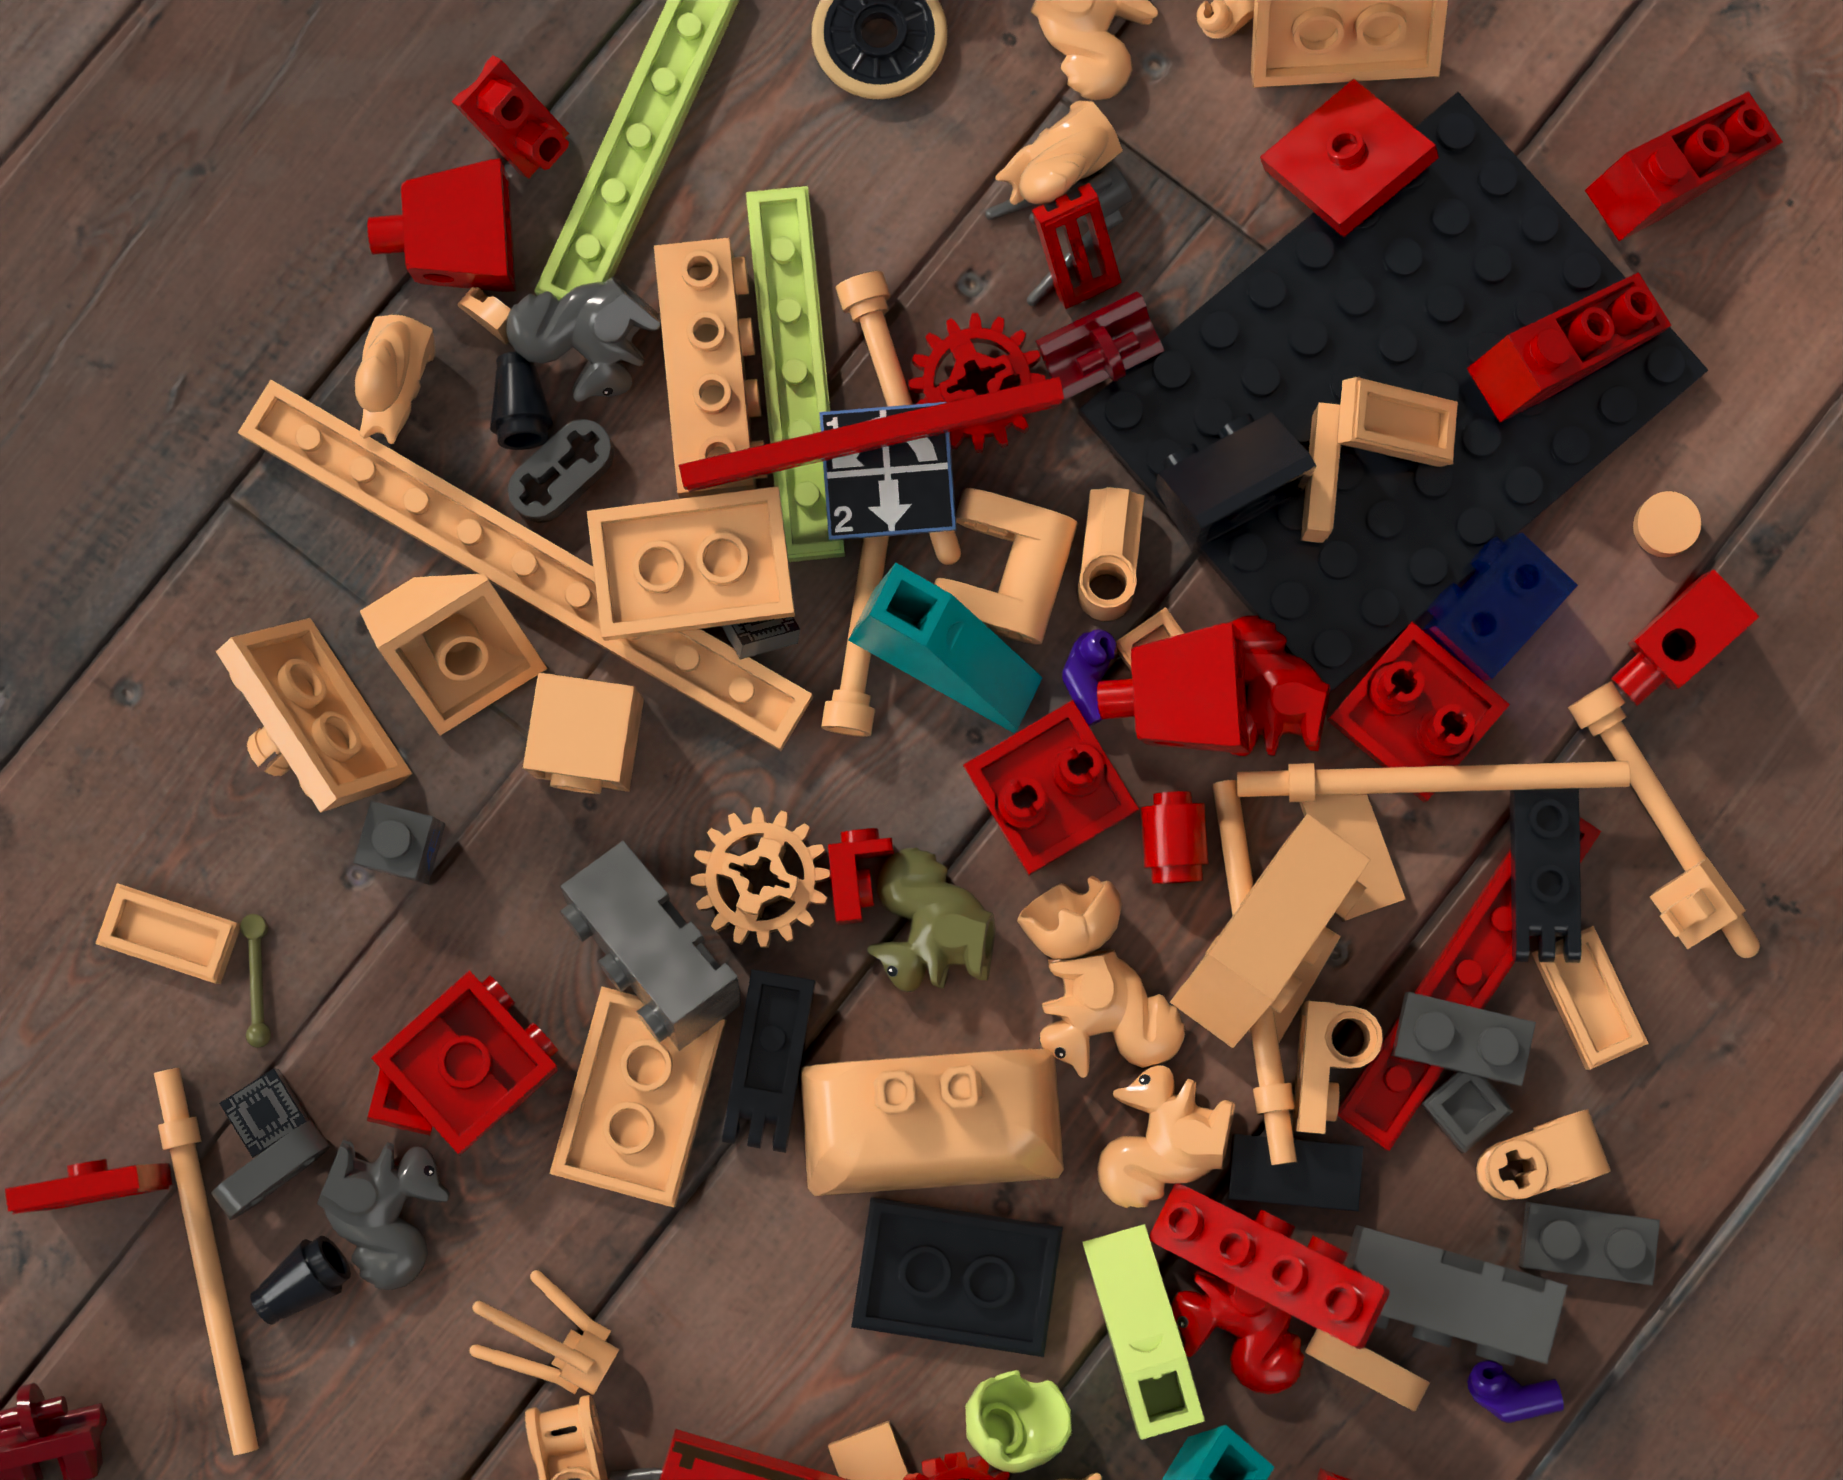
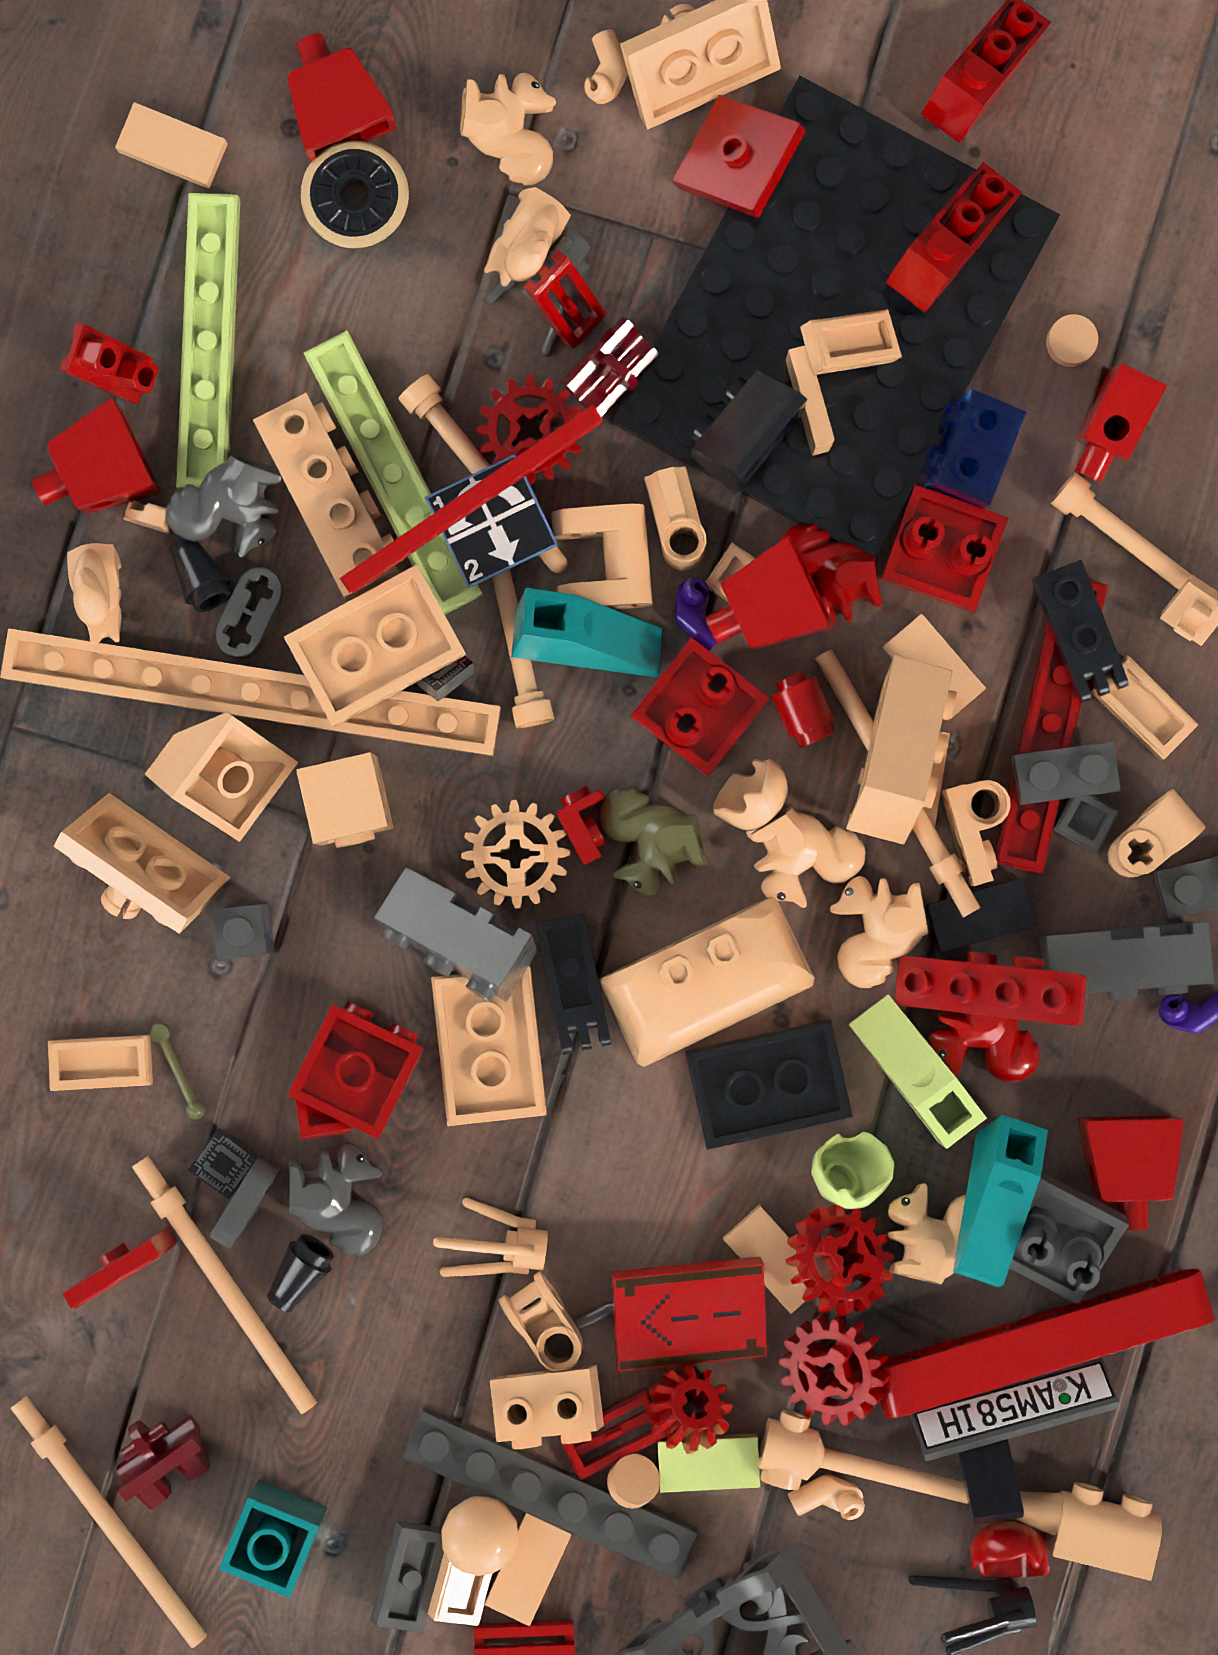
camera: 30 degrees left, 5 degrees up
(1303, 781) = (882, 632): light nougat bar -> none
(1369, 1369) = (1088, 1034): light nougat beam -> none

